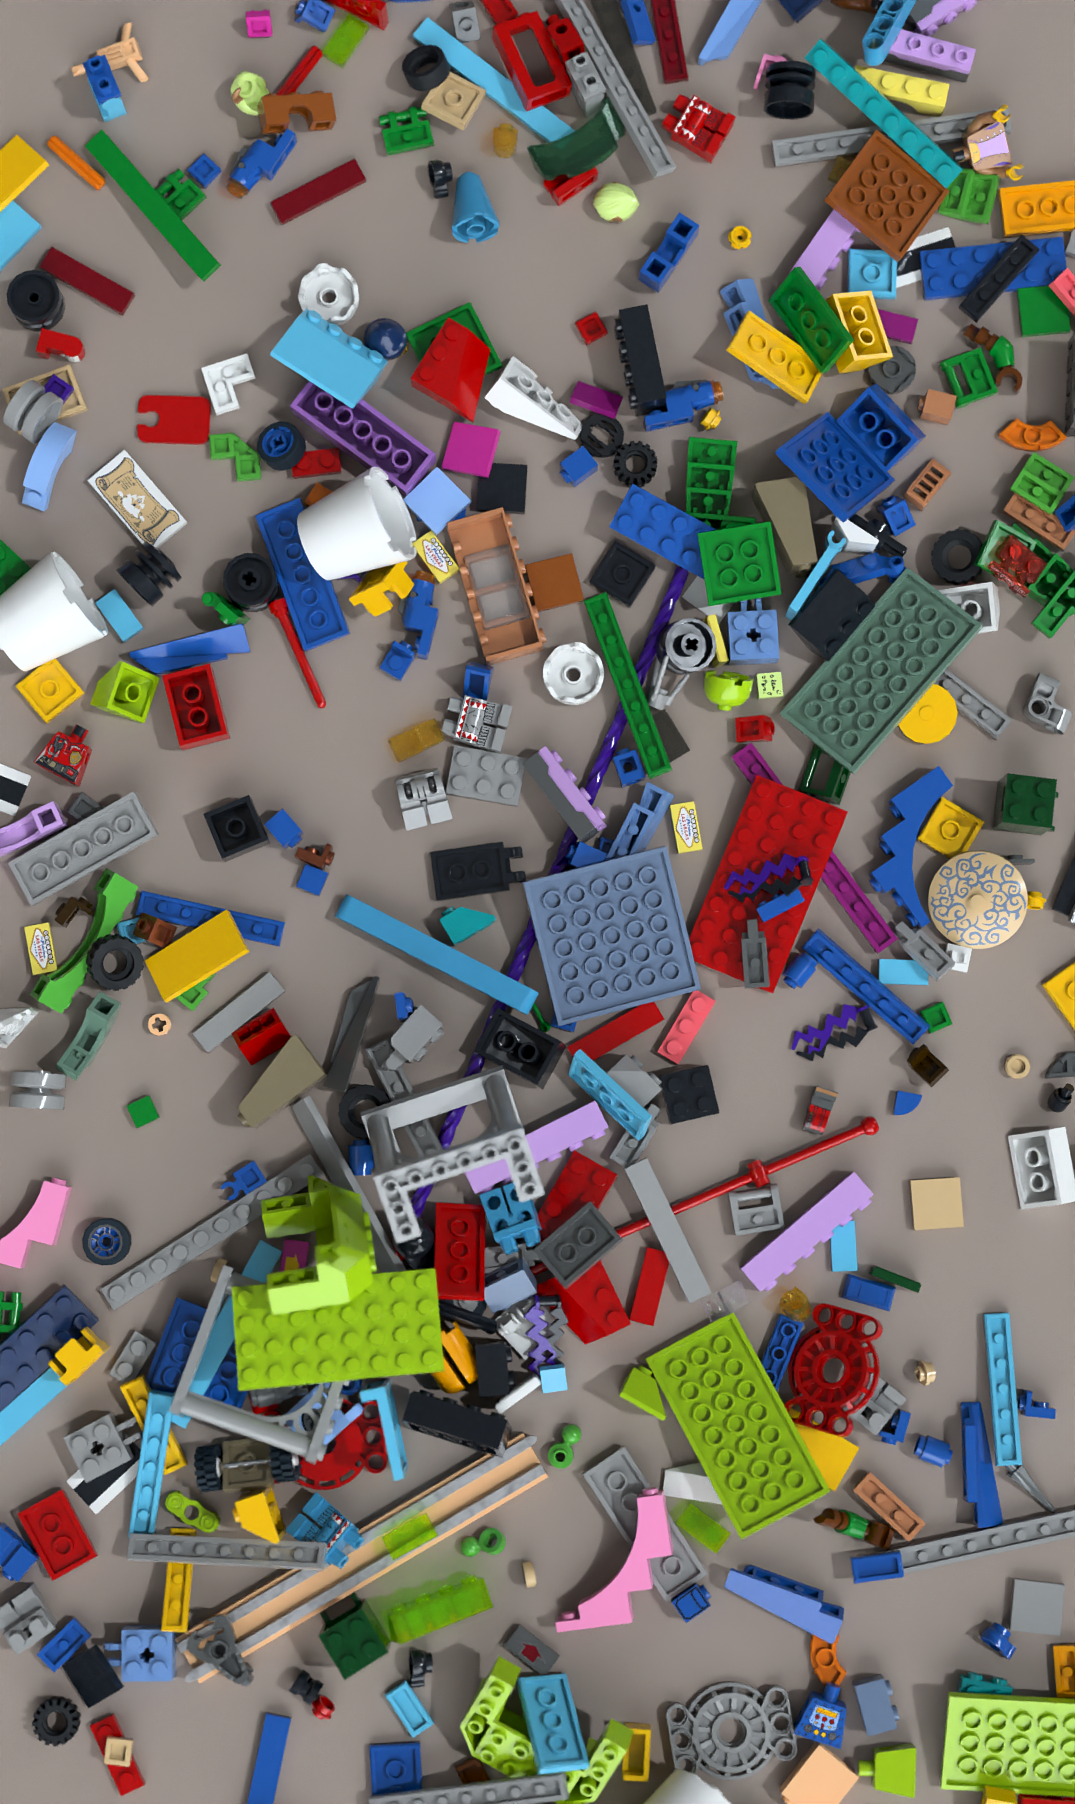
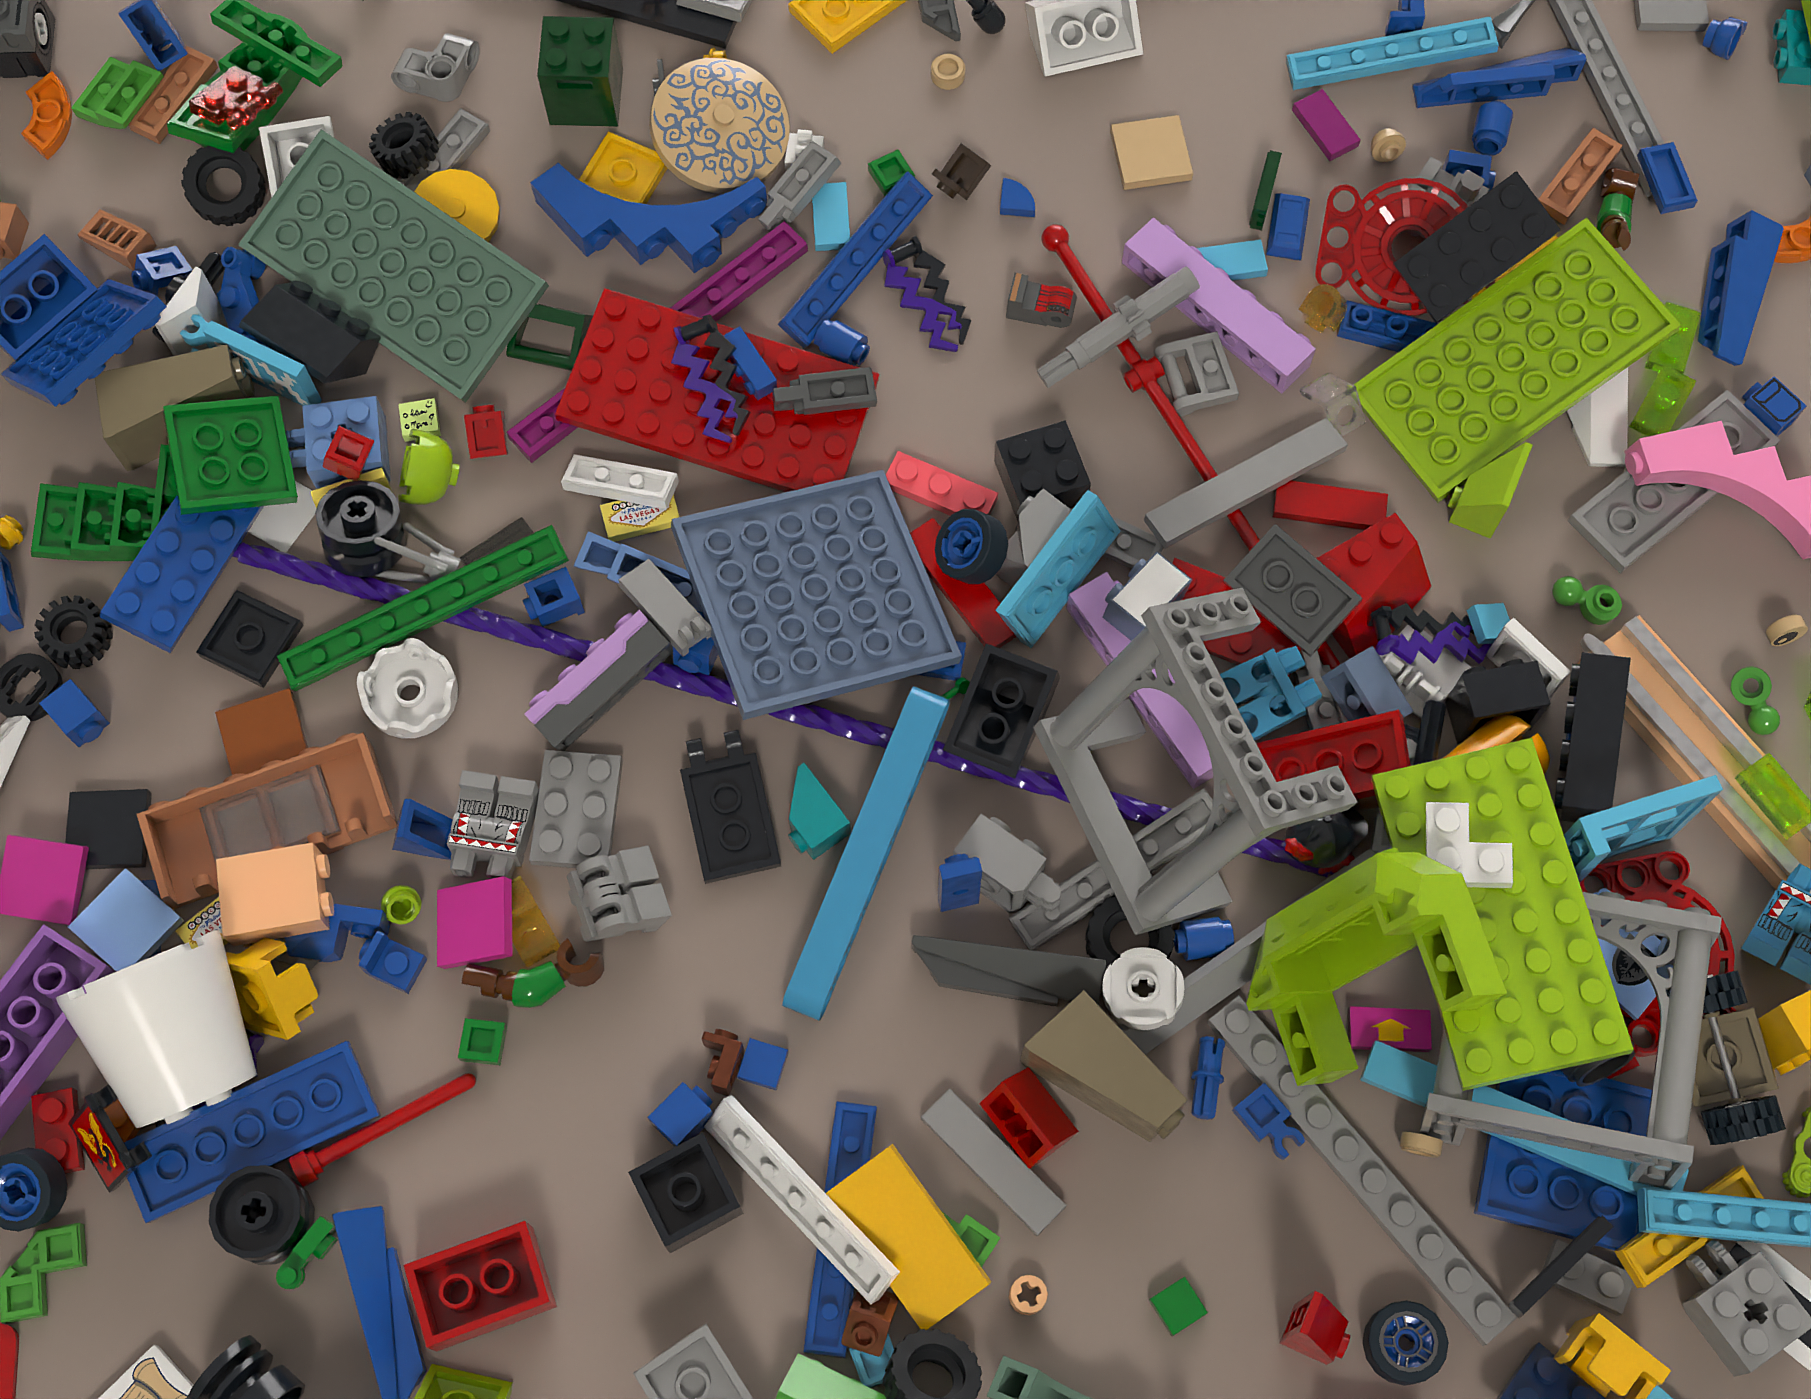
camera: 95 degrees left, 15 degrees down
(116, 1188) = (1316, 1329): none -> red slope
(136, 1338) = (1560, 1266): none -> black tile
(226, 895) = (801, 1199): none -> white tile
(274, 1147) = (1207, 1078): none -> blue axle
(298, 492) = (103, 1142): none -> flag
(338, 1104) = (1149, 1011): none -> white plate
(342, 713) = (482, 1041): none -> green plate
(369, 1306) = (1448, 843): none -> white plate
(373, 743) = (539, 984): none -> reddish brown piece
(416, 710) = (474, 922): none -> dark pink tile
(432, 666) = (401, 904): none -> lime plate
(439, 591) = (274, 894): none -> light nougat brick
(583, 1149) = (1149, 585): none -> white brick
(605, 838) = (665, 606): none -> light grey hinge
(632, 1039) = (971, 546): none -> black wheel
(709, 815) = (620, 481): none -> white tile
(734, 639) = (347, 453): none -> red slope
(755, 1549) = (1675, 349): none -> clear neon green plate
(793, 1167) = (1130, 319): none -> light grey piece
(815, 1410) = (1476, 247): none -> black brick
(948, 1332) = (1326, 125): none -> magenta tile
(974, 690) = (404, 145): none -> black tyre

